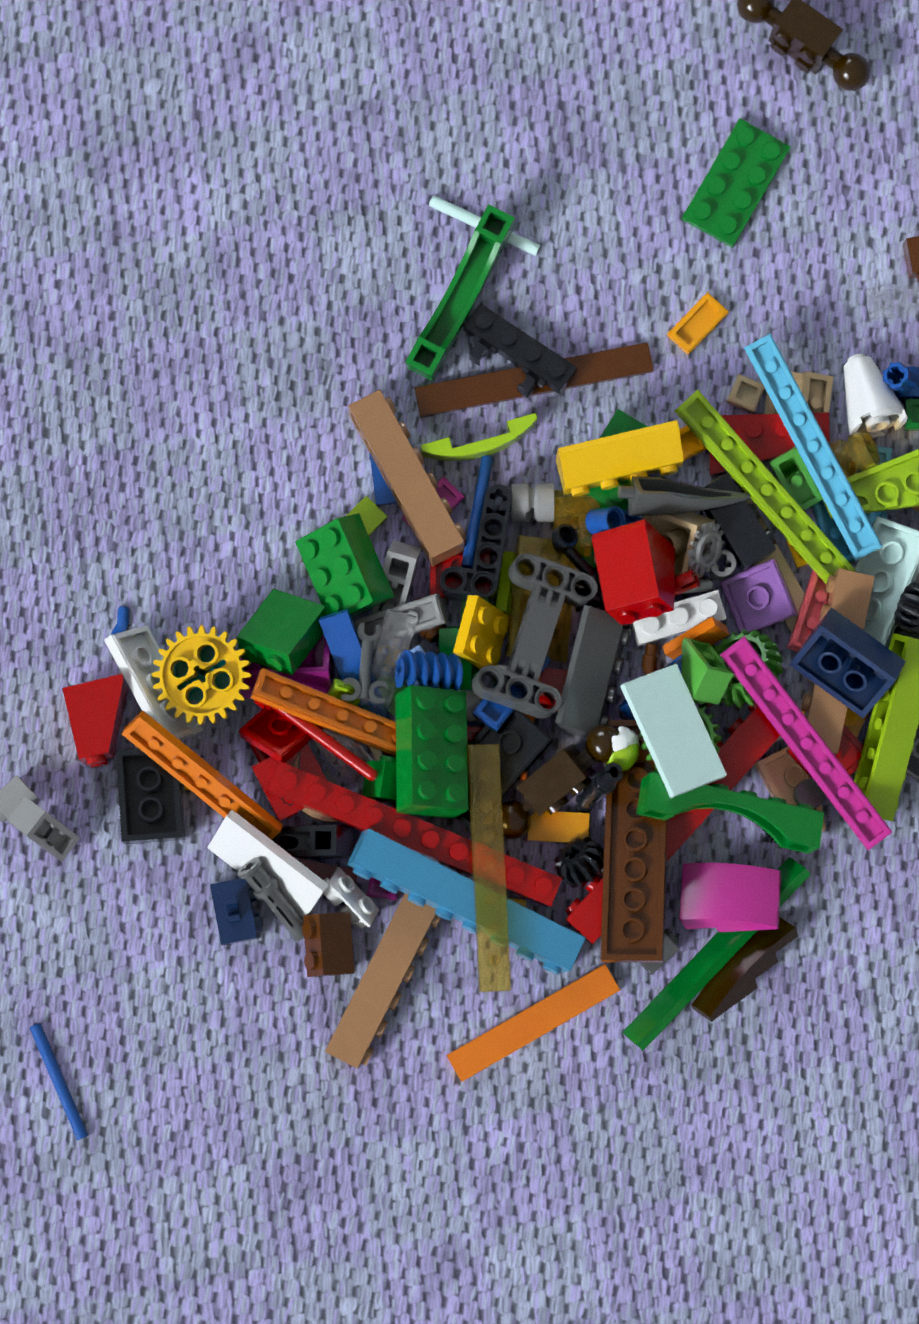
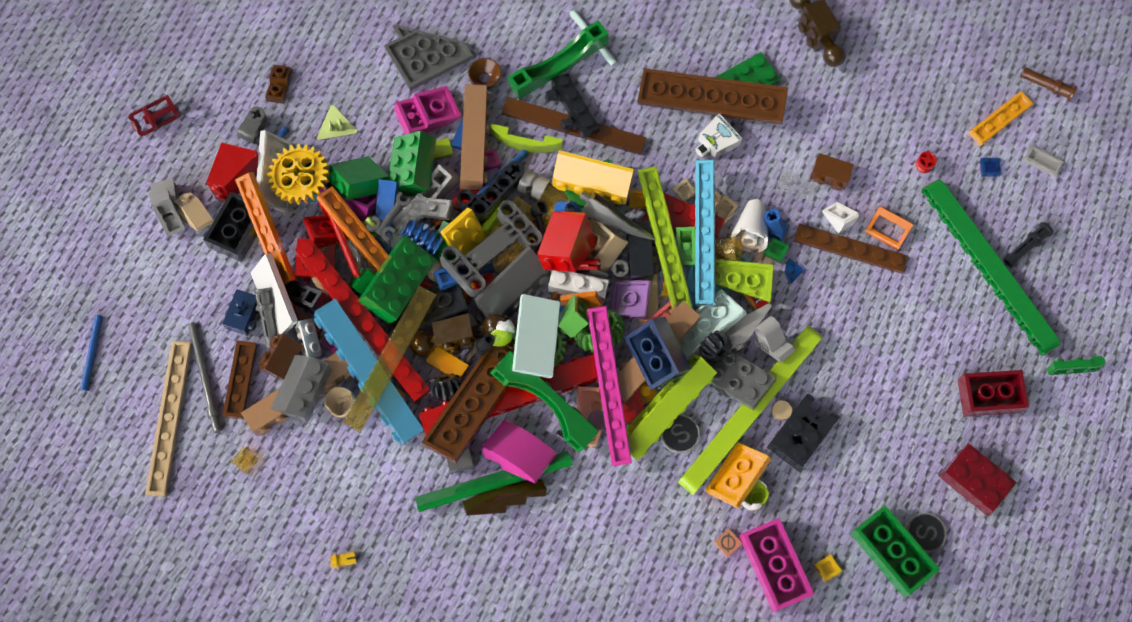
camera: 30 degrees right, 10 degrees down
(70, 546) = (279, 82): none -> reddish brown slope
(76, 636) = (251, 127): none -> dark grey piece
(80, 808) = (193, 211): none -> tan slope
(191, 564) = (335, 125): none -> yellowish green piece
(224, 1110) = (168, 419): none -> tan tile
(257, 387) = (424, 55): none -> dark grey wing
(279, 1069) = (212, 411): none -> dark grey bar
(289, 1006) = (239, 379): none -> reddish brown plate
(313, 474) = (427, 111): none -> dark pink slope
(358, 356) = (484, 66): none -> reddish brown piece
(364, 1110) = (244, 460): none -> clear yellow tile
(387, 973) = (302, 387): none -> dark grey slope
(459, 956) = (339, 395): none -> tan hair
(533, 1022) = (367, 463): orange tile -> none
(577, 1167) = (341, 559): none -> yellow pin
(697, 323) = (679, 142): light orange tile -> none
(708, 534) = (620, 246): light grey gear -> none
(711, 230) = (712, 96): none -> reddish brown plate
(750, 290) = (718, 138): none -> white torso

